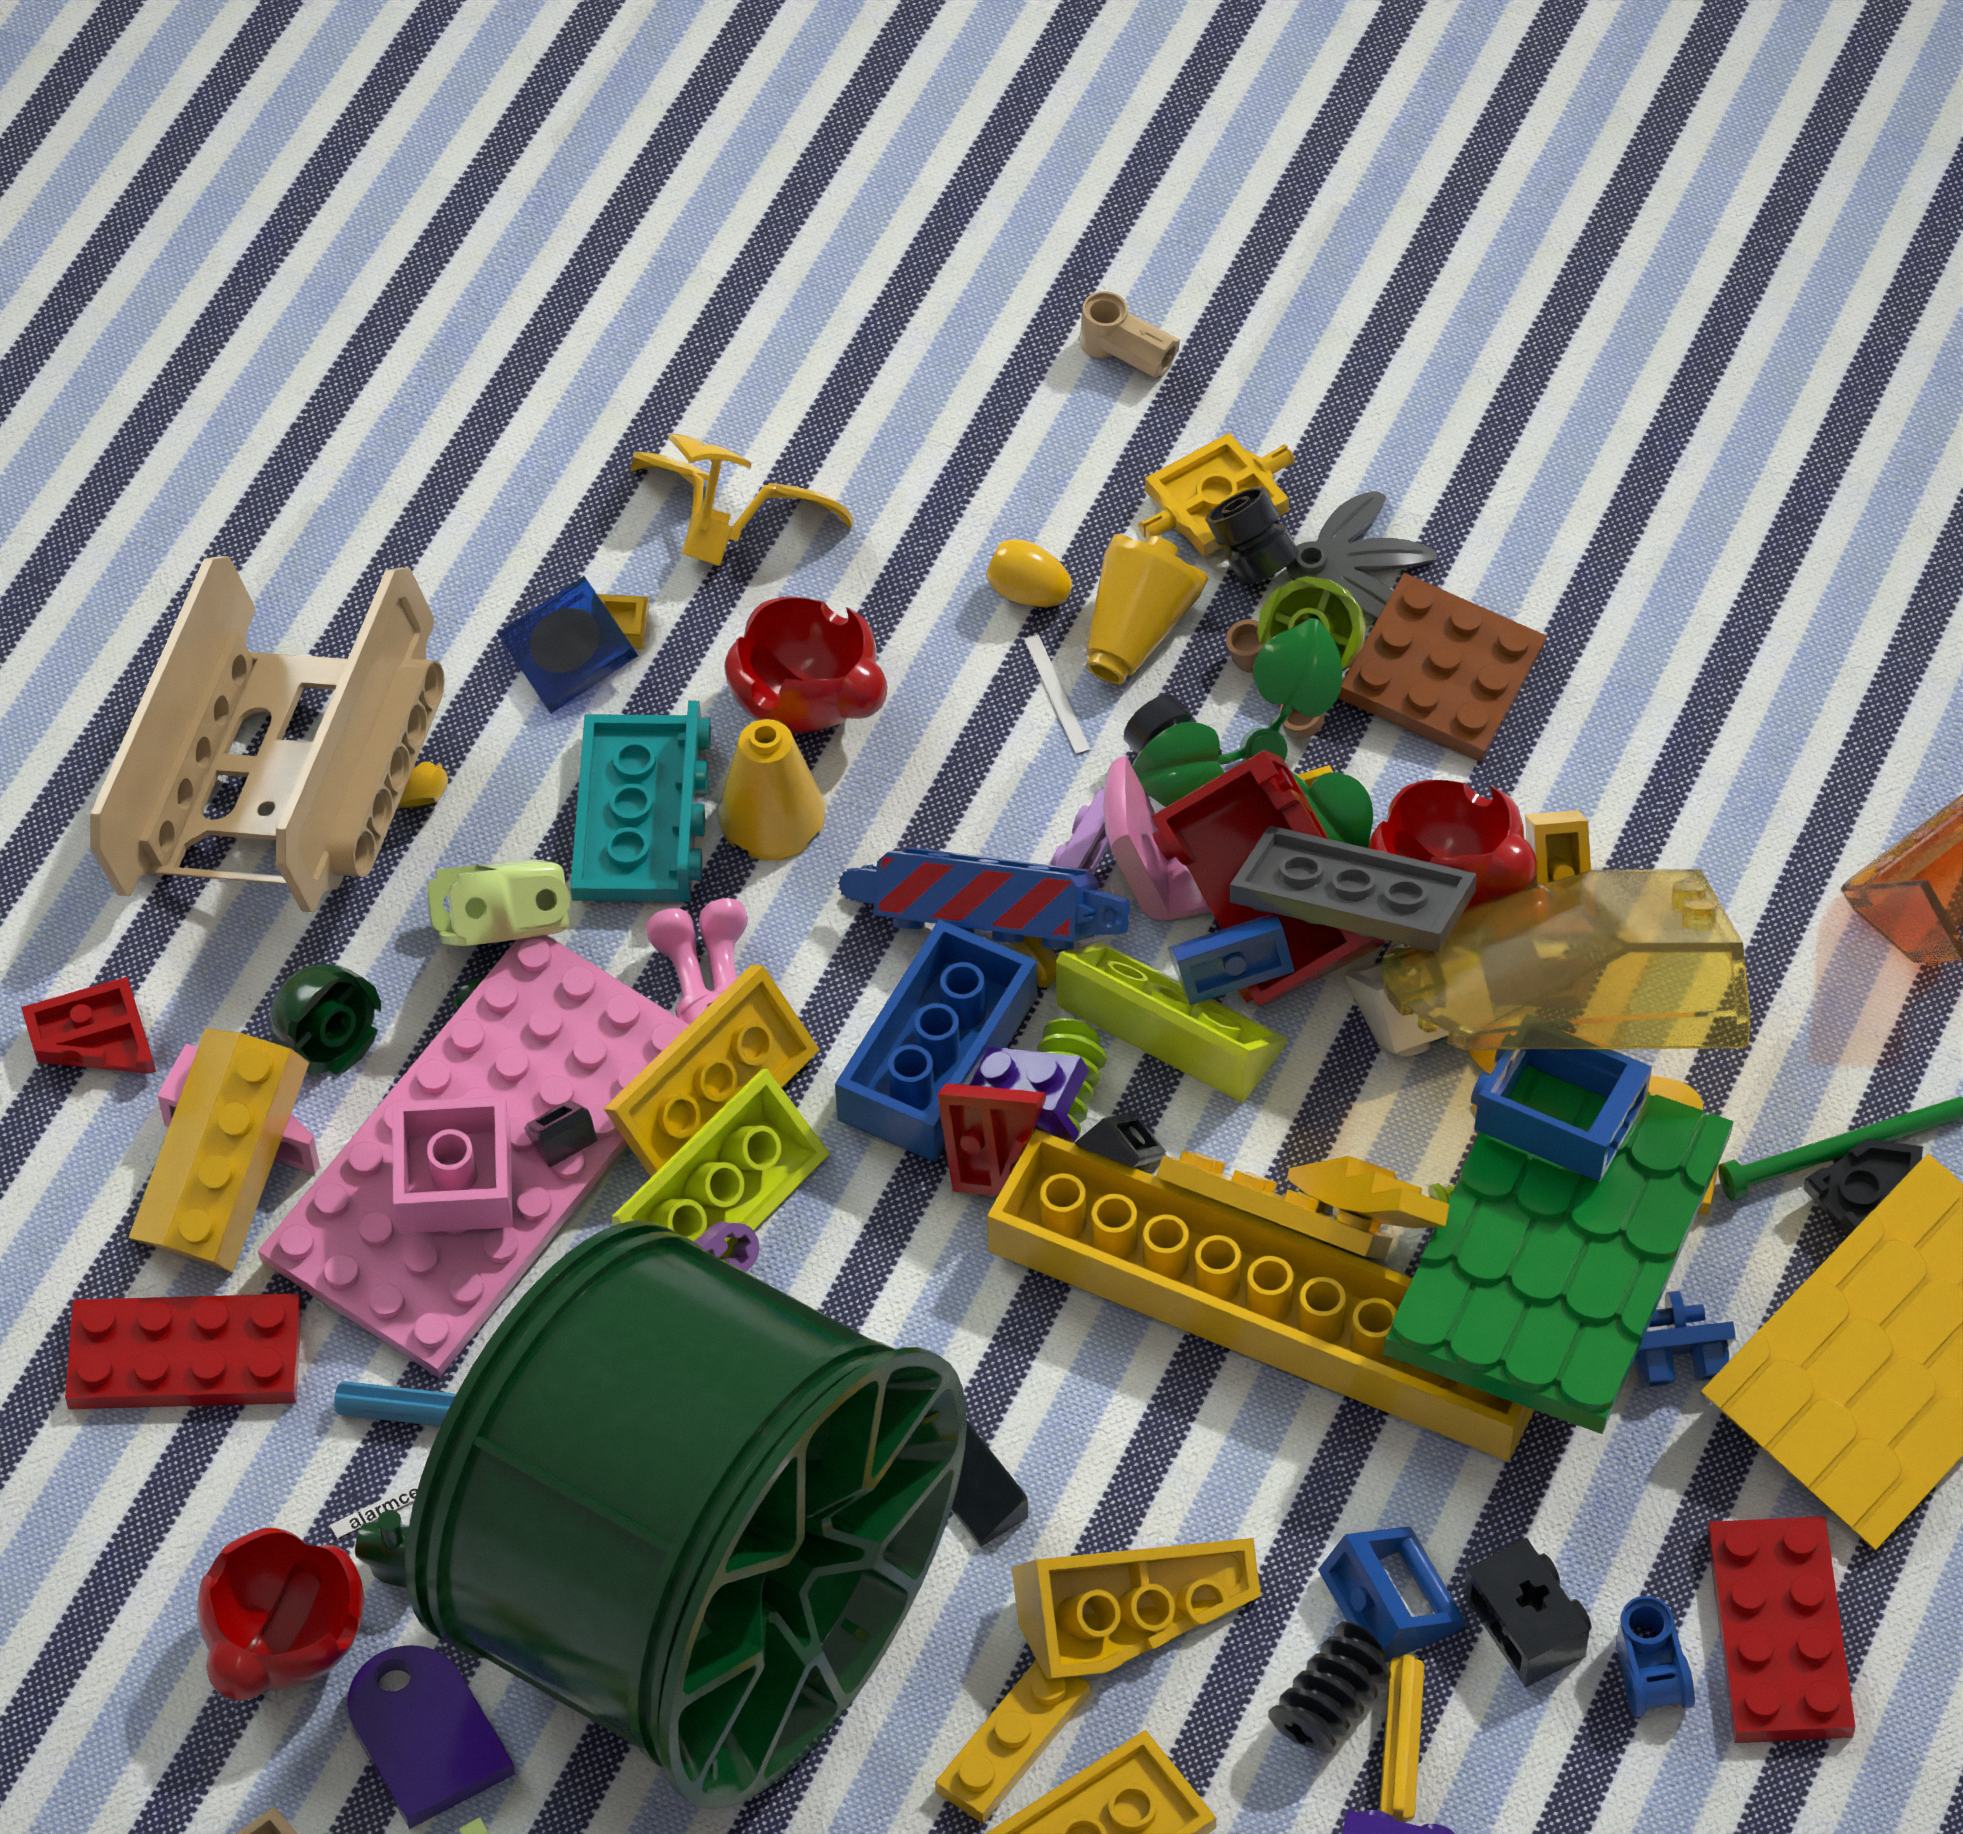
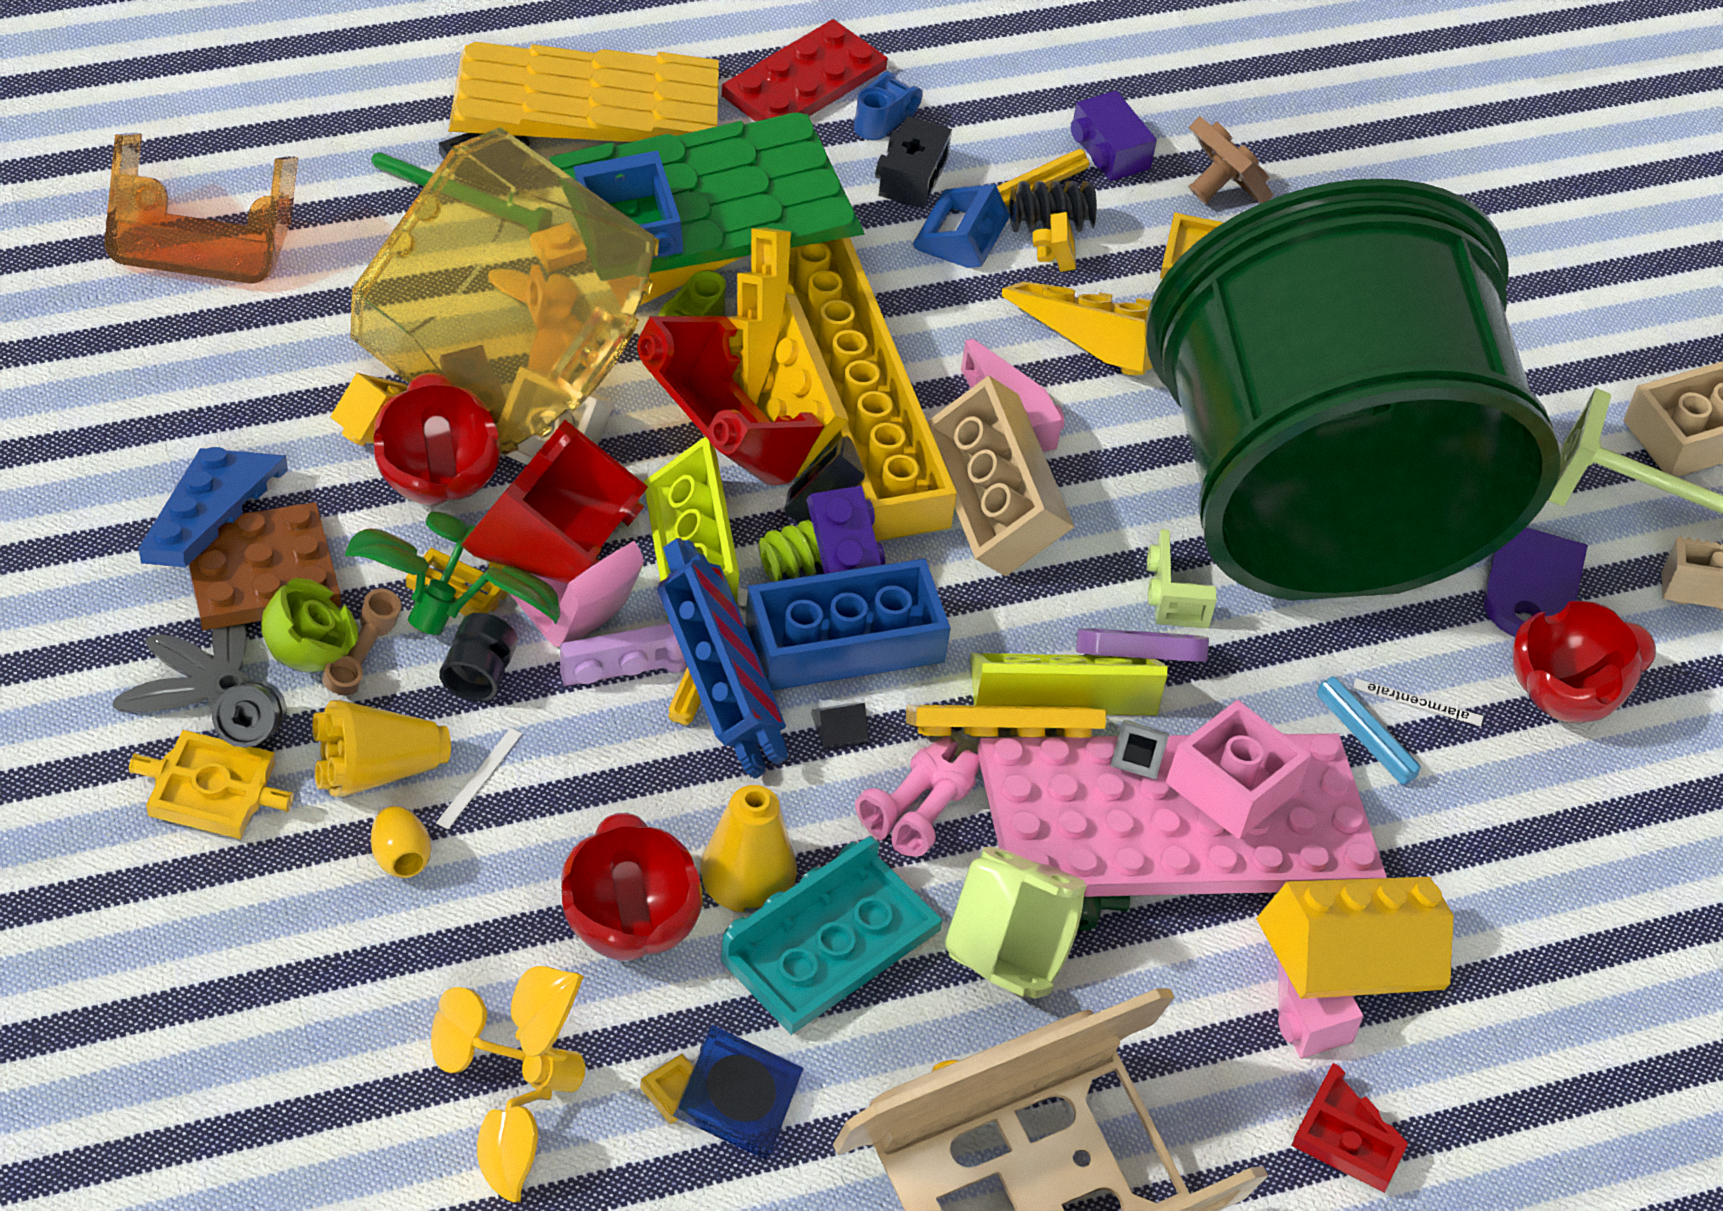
camera: 140 degrees left, 5 degrees down
(184, 1351) = (1483, 885): red plate -> none
(325, 1017) = (1203, 979): dark green cylinder -> none
(384, 1547) = (1466, 654): dark green piece -> none
(852, 984) = (841, 725): none -> black slope
(982, 1284) = (999, 476): none -> tan brick
(986, 1133) = (897, 538): red wing -> none
(986, 1493) = (1105, 437): black slope -> none
(1085, 1418) = (1043, 414): none -> bright pink slope
(1112, 331) = (95, 939): tan piece -> none
(1232, 958) = (642, 483): blue tile -> none
(1273, 1657) = (1058, 243): none -> yellow tile
(1281, 1090) = (696, 369): none -> red windscreen
(1353, 888) = (545, 429): dark grey plate -> none
(1556, 668) = (206, 499): none -> blue wing

